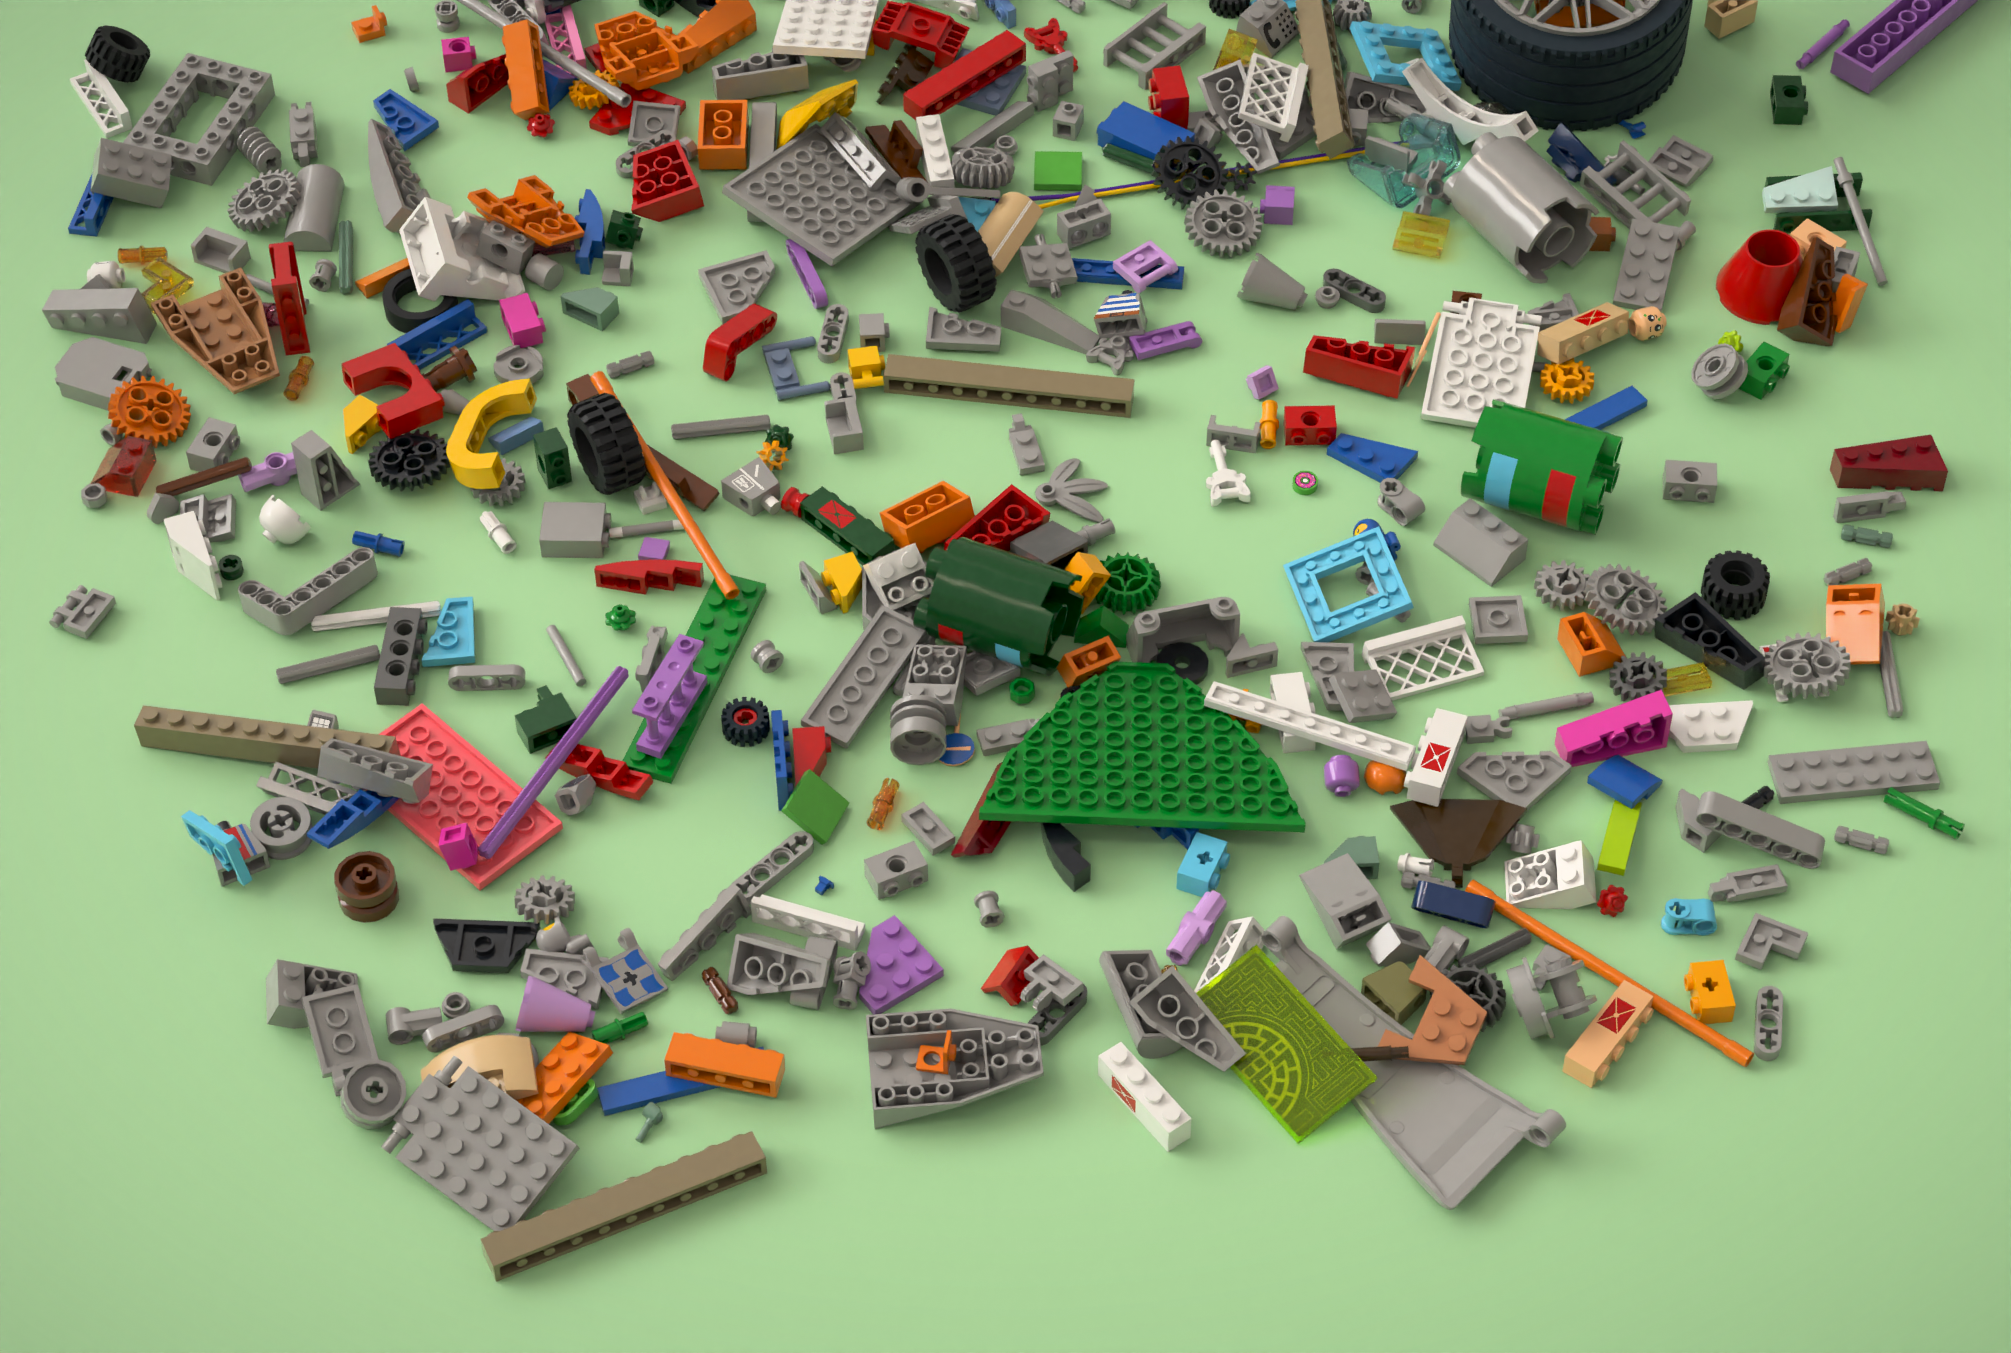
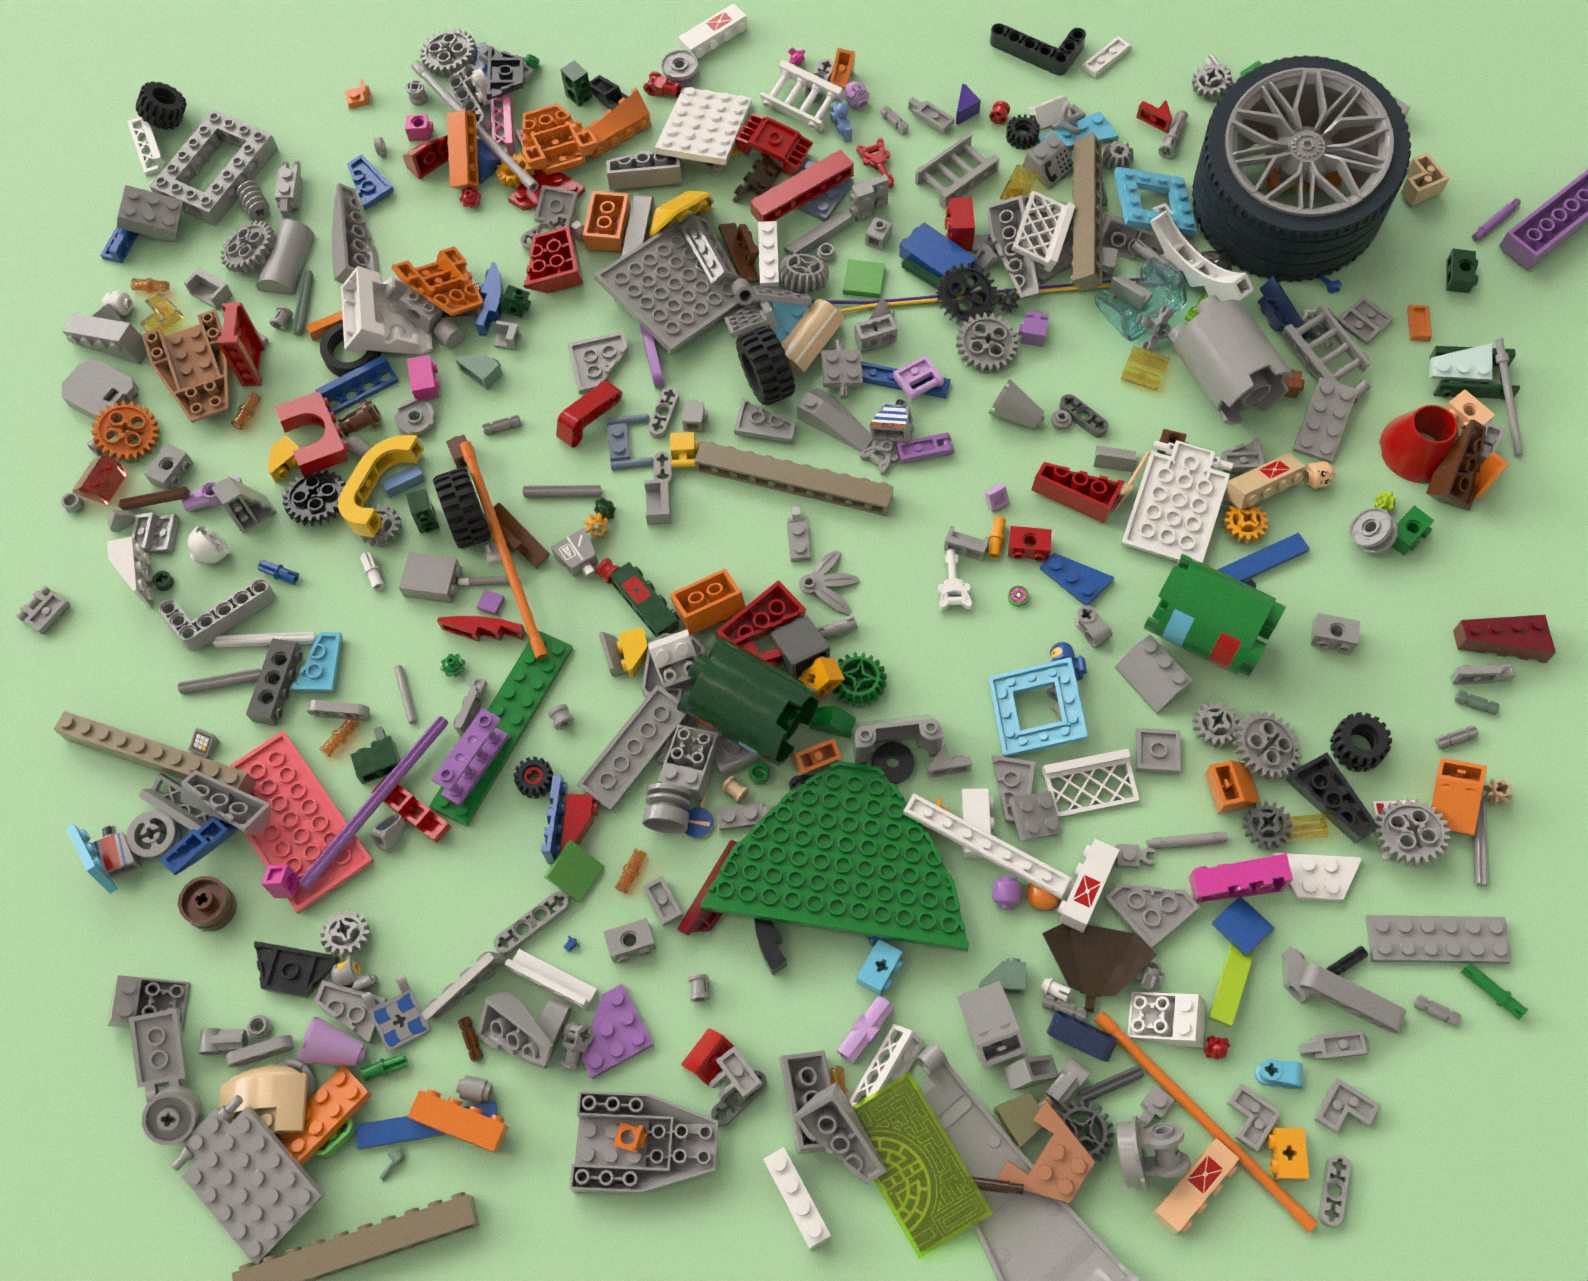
camera: 10 degrees right, 15 degrees up
(492, 705) = (338, 737): none -> clear orange pin
(995, 708) = (735, 789): none -> tan bush
(1670, 959) = (1259, 1115): none -> light grey plate
(1745, 159) = (1419, 323): none -> orange tile

